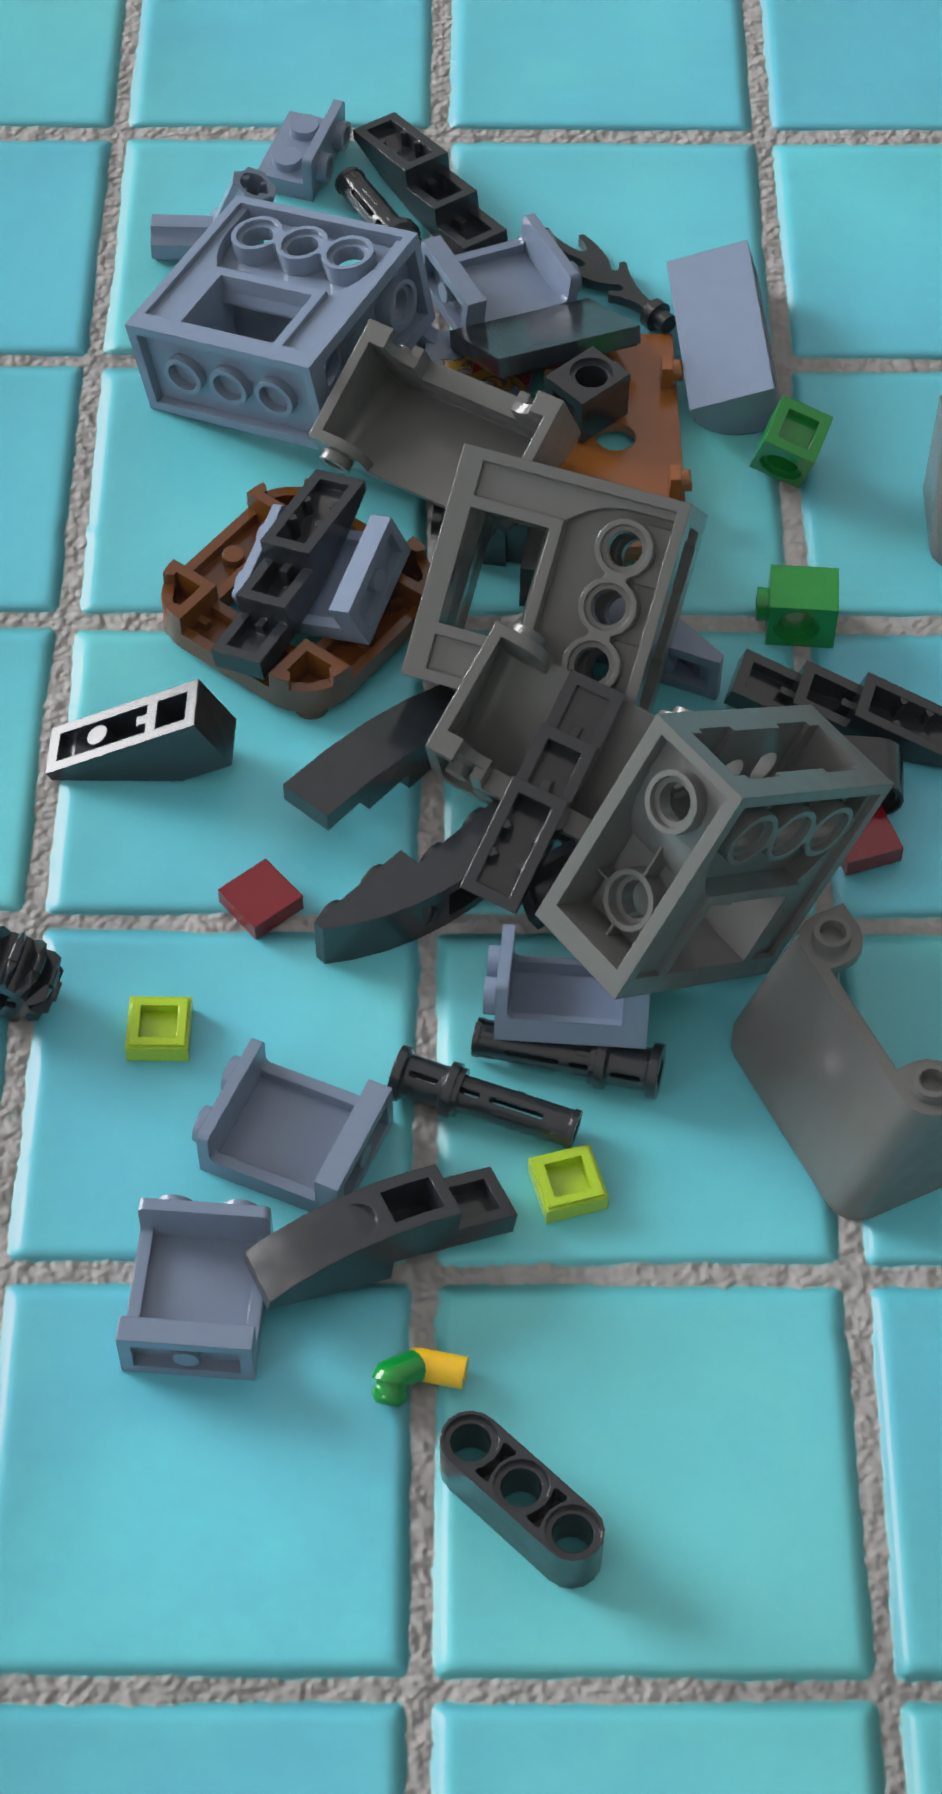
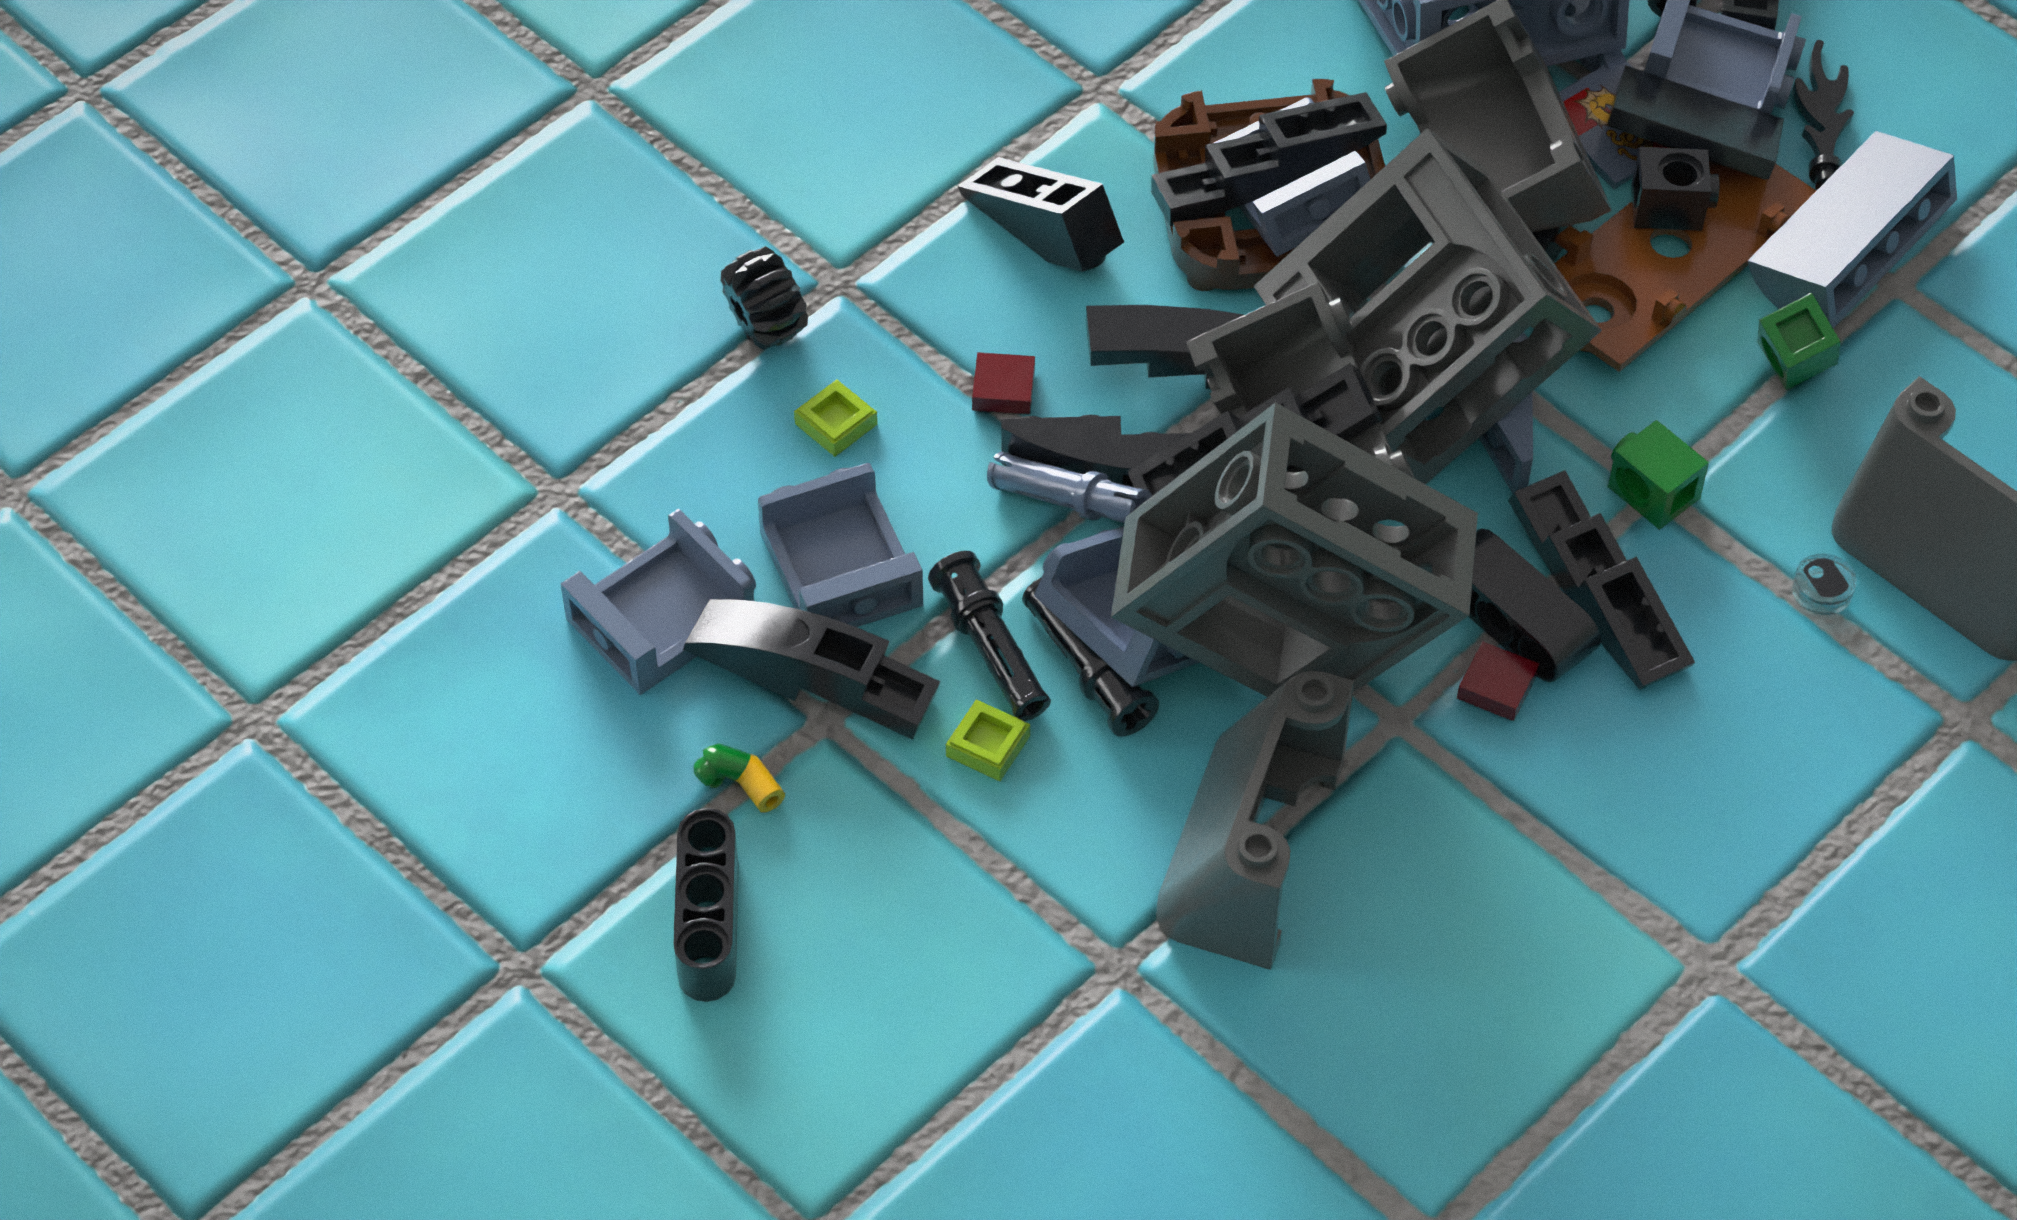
camera: 45 degrees right, 0 degrees up
(444, 929) = (1085, 493): none -> sand blue pin

